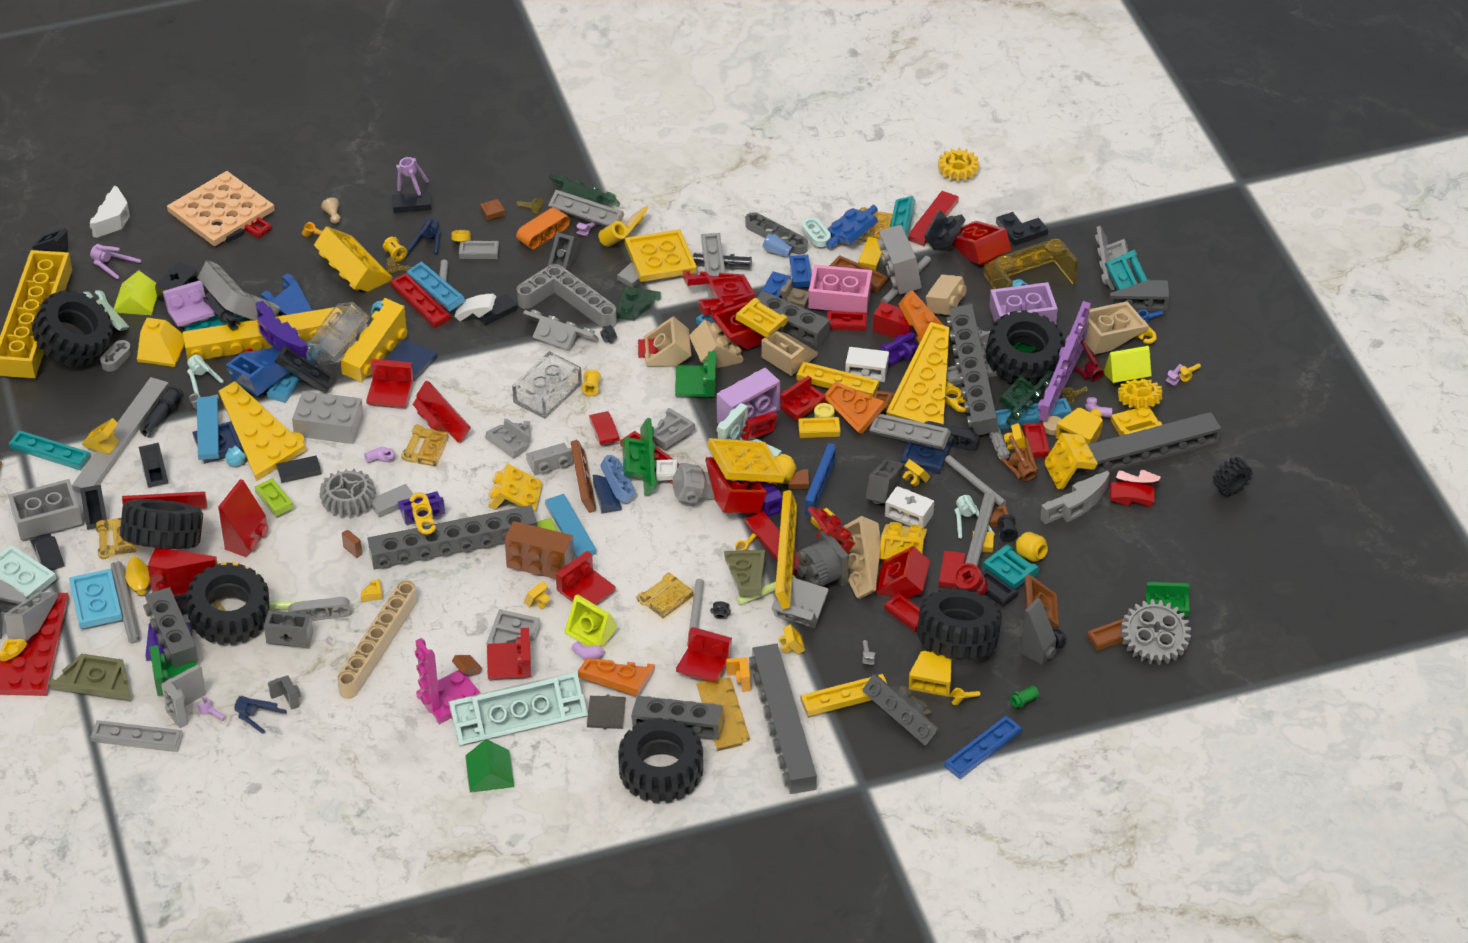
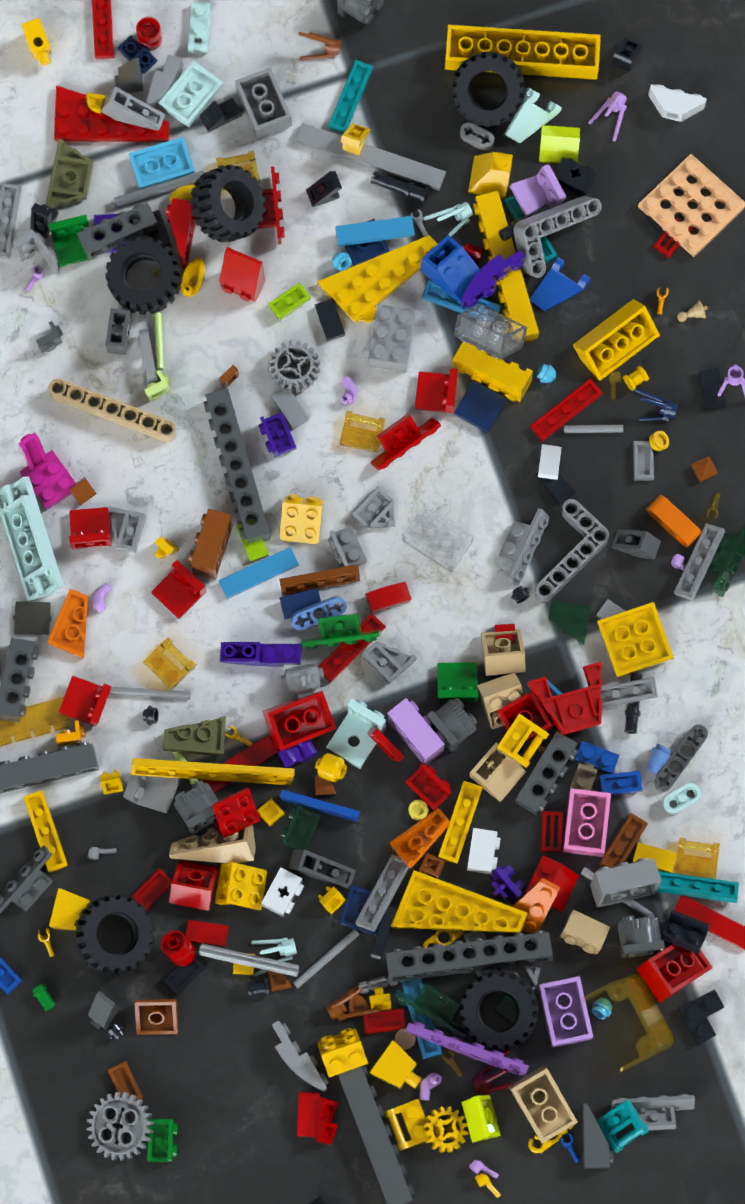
camera: 90 degrees right, 30 degrees up
(93, 505) = (269, 146): black slope -> none
(145, 693) = (41, 217): none -> black slope
(248, 706) = (32, 308): dark blue plant -> none
(304, 369) = (449, 308): black tile -> none
(357, 600) = (158, 389): none -> yellowish green bracket
(372, 591) = (176, 401): yellow tile -> none
(421, 521) = (244, 431): yellow piece -> none
(436, 286) = (580, 421): dark azure tile -> none
(589, 623) = (129, 597): neon yellow slope -> none
(590, 385) = (449, 581): yellow bush -> none
(617, 230) = (661, 595): yellow door -> none
(659, 518) = (260, 654): none -> dark purple slope
(665, 469) = (328, 658): white tile -> none
(736, 368) = (452, 723): none -> dark grey piece
(745, 460) = (320, 729): yellow plate -> none
(819, 427) = (397, 805): yellow tile -> none
(843, 494) = (301, 828): none -> clear green bracket
(851, 226) = (686, 834): blue plate -> none
(950, 254) = (639, 936): none -> dark grey piece
(1008, 570) = (203, 985): teal plate -> none
(1031, 546) = (231, 1010): yellow head -> none

